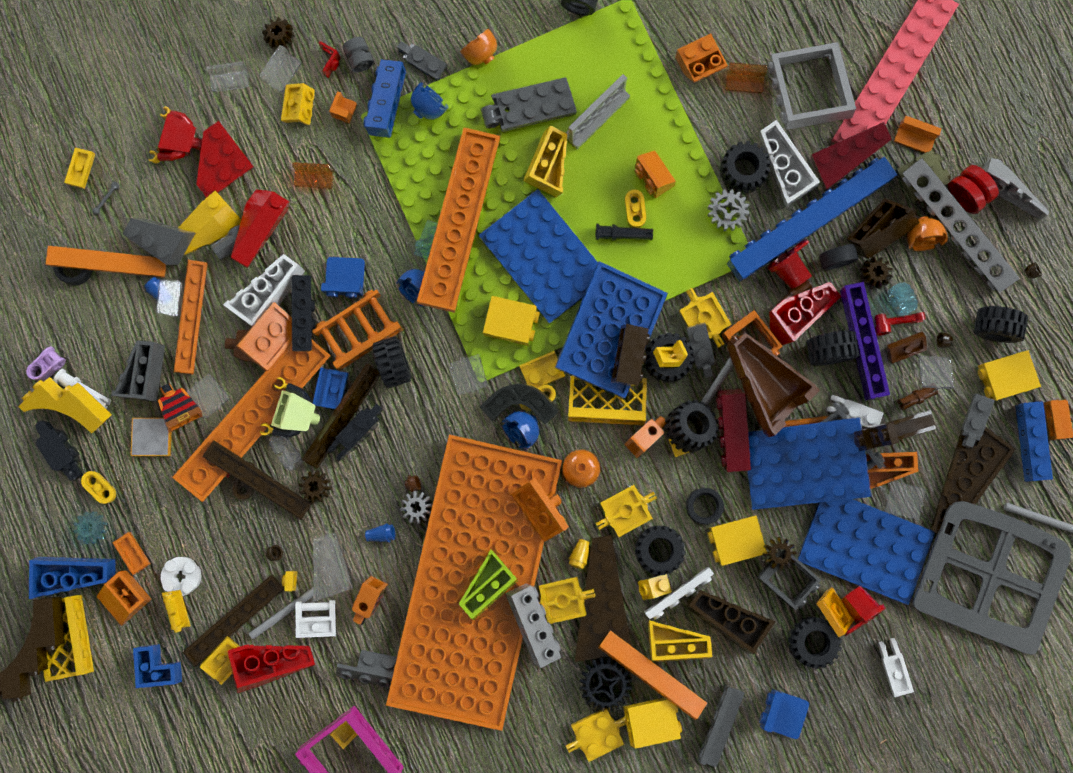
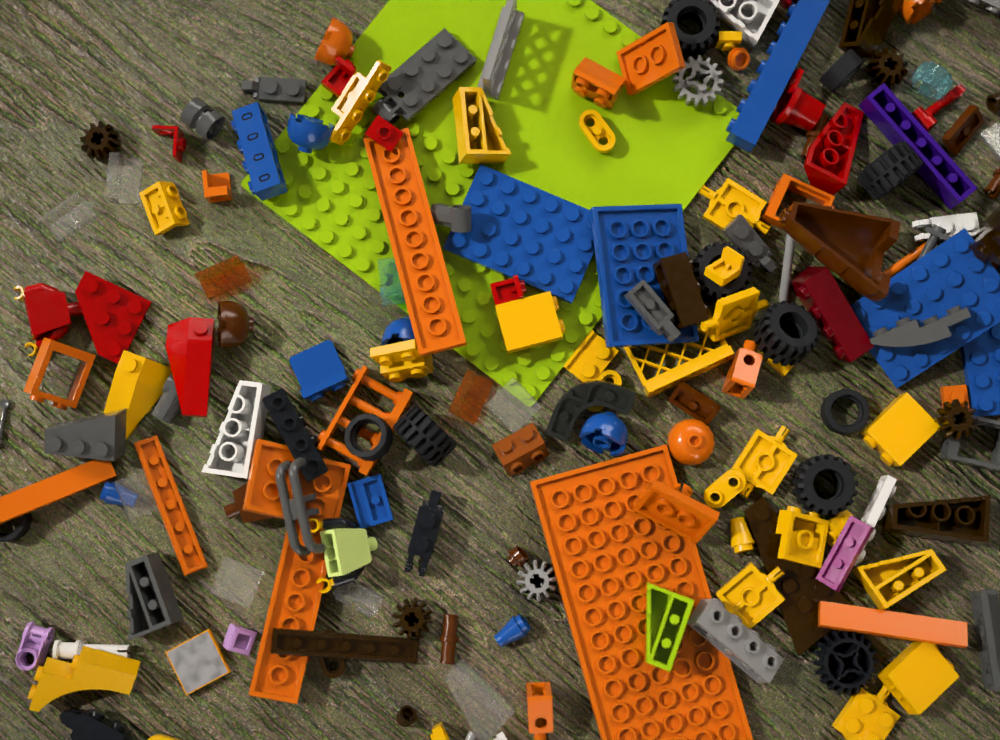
camera: 35 degrees left, 0 degrees up
(150, 172) = (40, 366): none -> orange window
(177, 408) = (211, 613): torso -> none
(187, 437) = (239, 639): none -> lavender slope
(273, 364) = (296, 508): none -> dark grey piece
(301, 212) = (233, 324): none -> reddish brown cylinder
(333, 515) = (449, 639): none -> reddish brown pin
(341, 415) = (399, 525): dark brown tile -> none
(344, 331) = (353, 429): none -> black tyre
(403, 300) = (401, 361): none -> yellow plate
(441, 352) = (470, 397): none -> clear orange panel
(456, 409) = (521, 449): none -> dark orange bracket
(471, 75) = (339, 76): none -> red bracket
(473, 96) = (355, 100): none -> yellow bracket
(479, 131) = (383, 133): none -> red bracket
(498, 217) = (456, 216): none -> dark grey piece
(507, 290) = (508, 290): none -> red bracket
(586, 515) = (724, 488): none -> yellow plate
(598, 441) = (694, 403): none -> reddish brown plate
(601, 358) = (653, 310): none -> dark grey hinge
(614, 233) = (588, 168): black pin -> none
(621, 577) = (802, 536): none -> yellow plate
(645, 605) = (844, 553): none -> magenta plate
(660, 392) = (734, 314): none -> yellow plate
(701, 176) = (651, 58): none -> orange plate
(768, 192) = (728, 40): none -> yellow plate
(769, 209) = (738, 58): none -> orange plate
(781, 474) = (911, 334): none -> dark grey slope
(795, 537) = (950, 393): none -> orange plate

